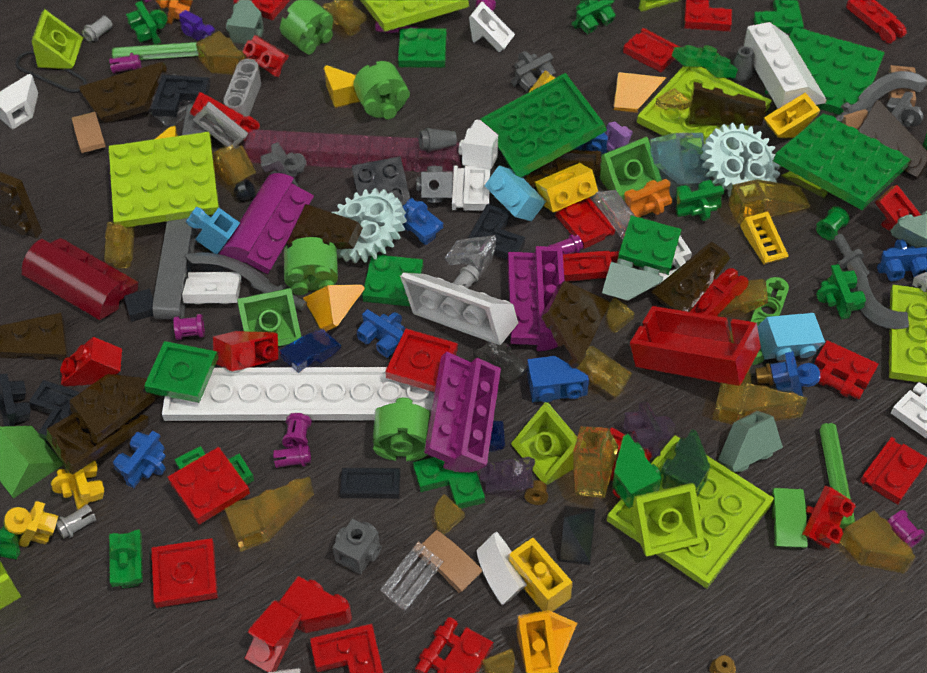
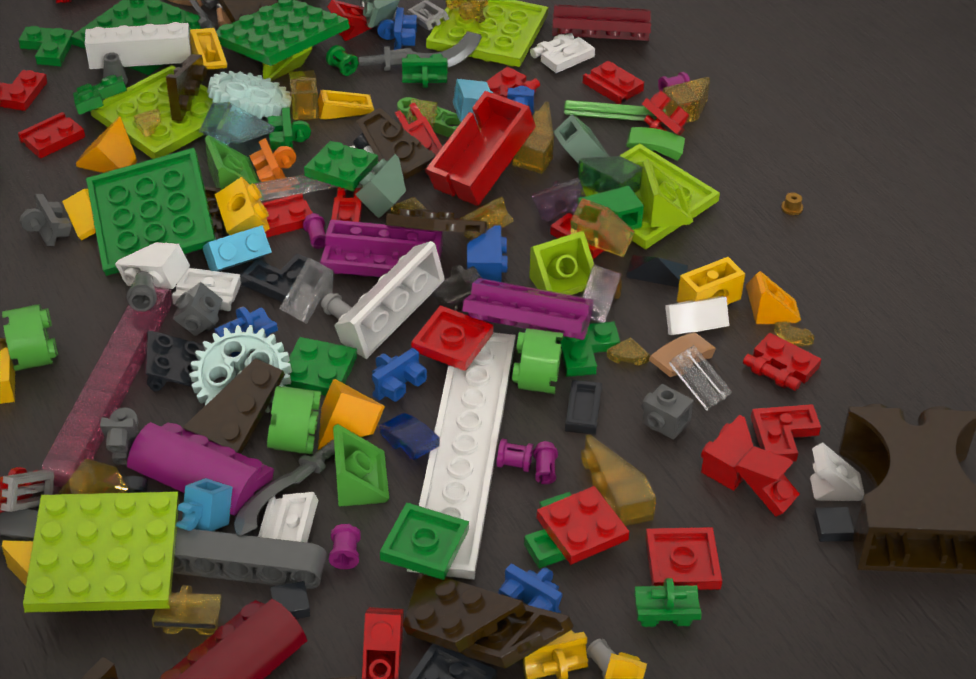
camera: 85 degrees left, 10 degrees down
(245, 349) = (397, 485): red slope -> none

